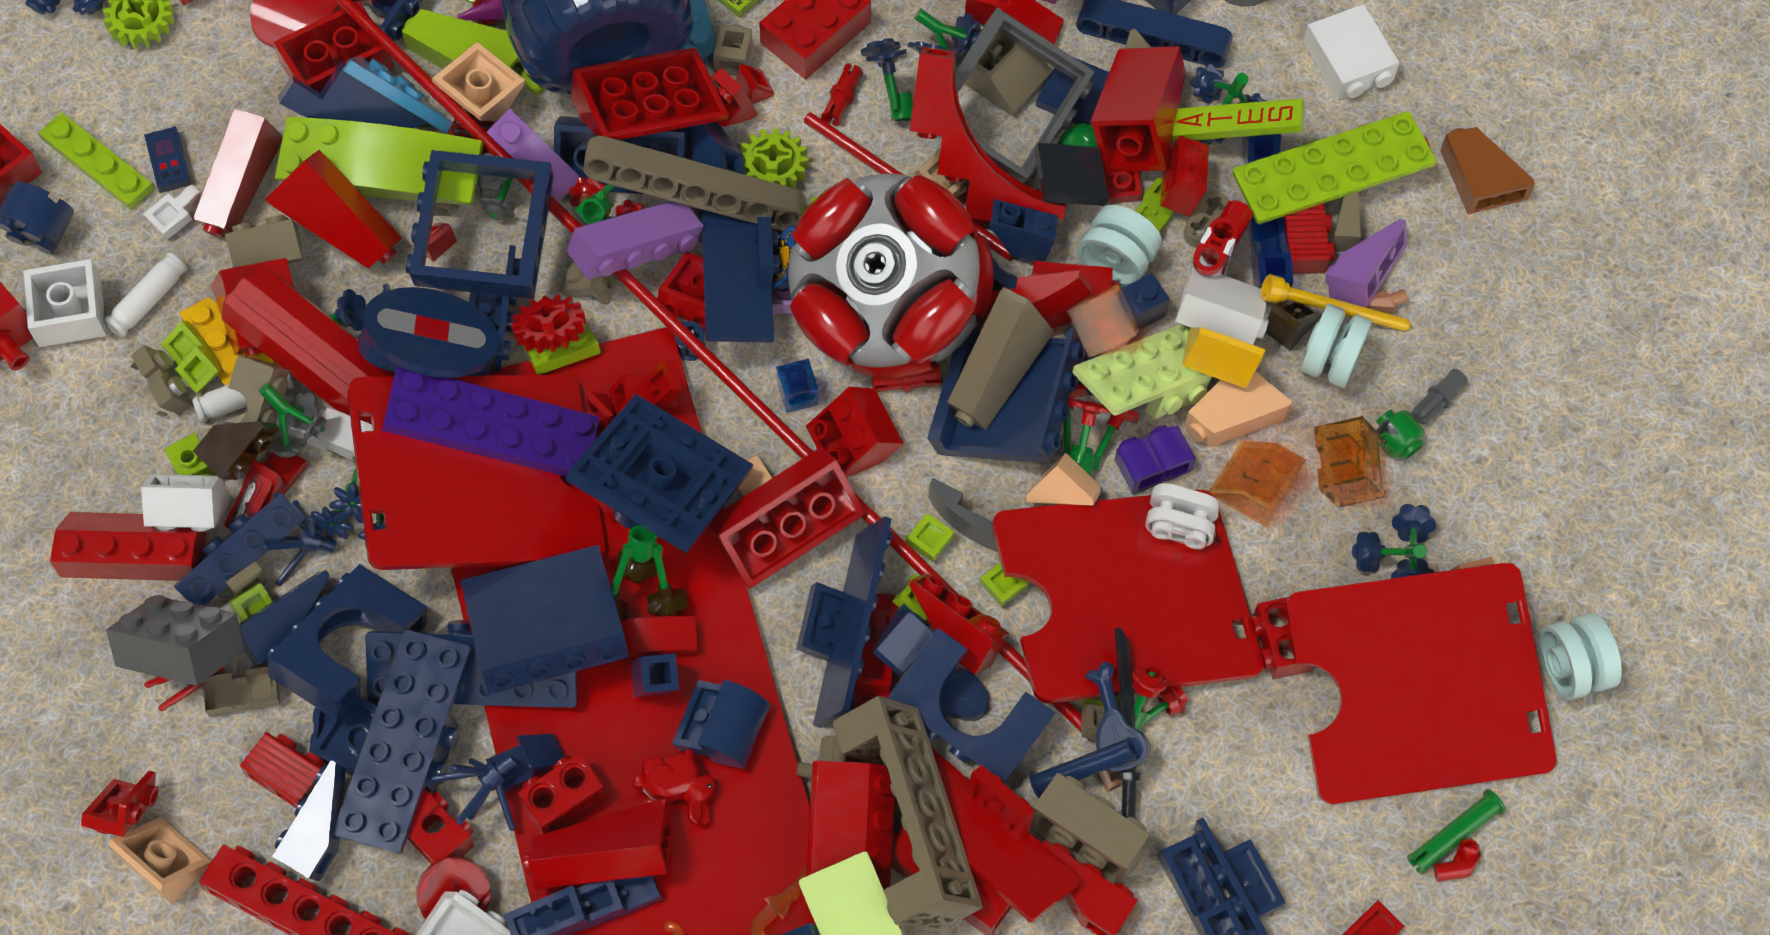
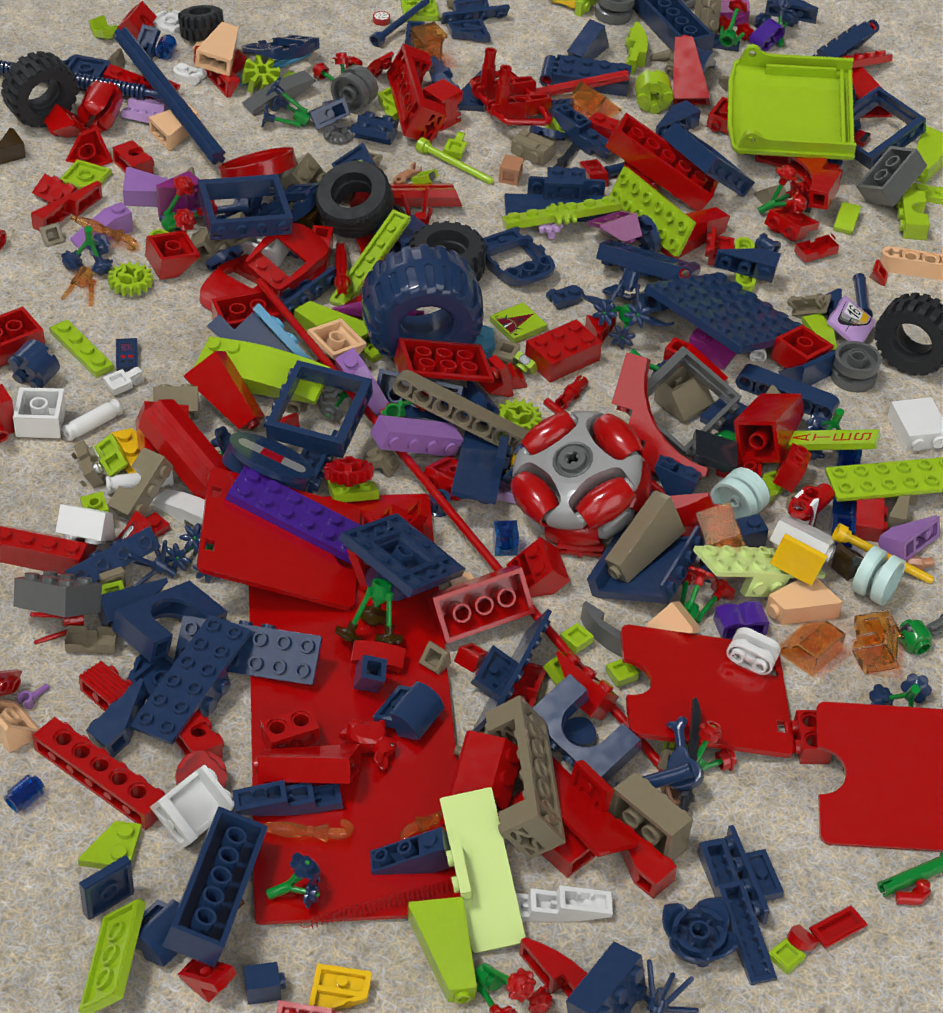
camera: 10 degrees right, 20 degrees down
(66, 30) = (82, 279): none -> clear orange plant
(180, 804) = (30, 697): none -> medium lavender hand
(234, 446) = (127, 497): dark brown slope -> none
(237, 172) = (170, 362): slope -> none
(301, 413) = (175, 493): dark grey plant -> none
(491, 777) = (245, 711): dark blue plant -> none
(534, 757) = (276, 705): dark blue slope -> none
(544, 619) = (304, 627): dark blue panel -> none
(739, 622) = (435, 658): none -> dark tan slope
(764, 59) = (525, 364): none -> lime plate
(787, 598) = (470, 656): none -> red slope
(885, 53) = (603, 372): plant -> none
(902, 639) = (543, 683): dark blue slope -> none

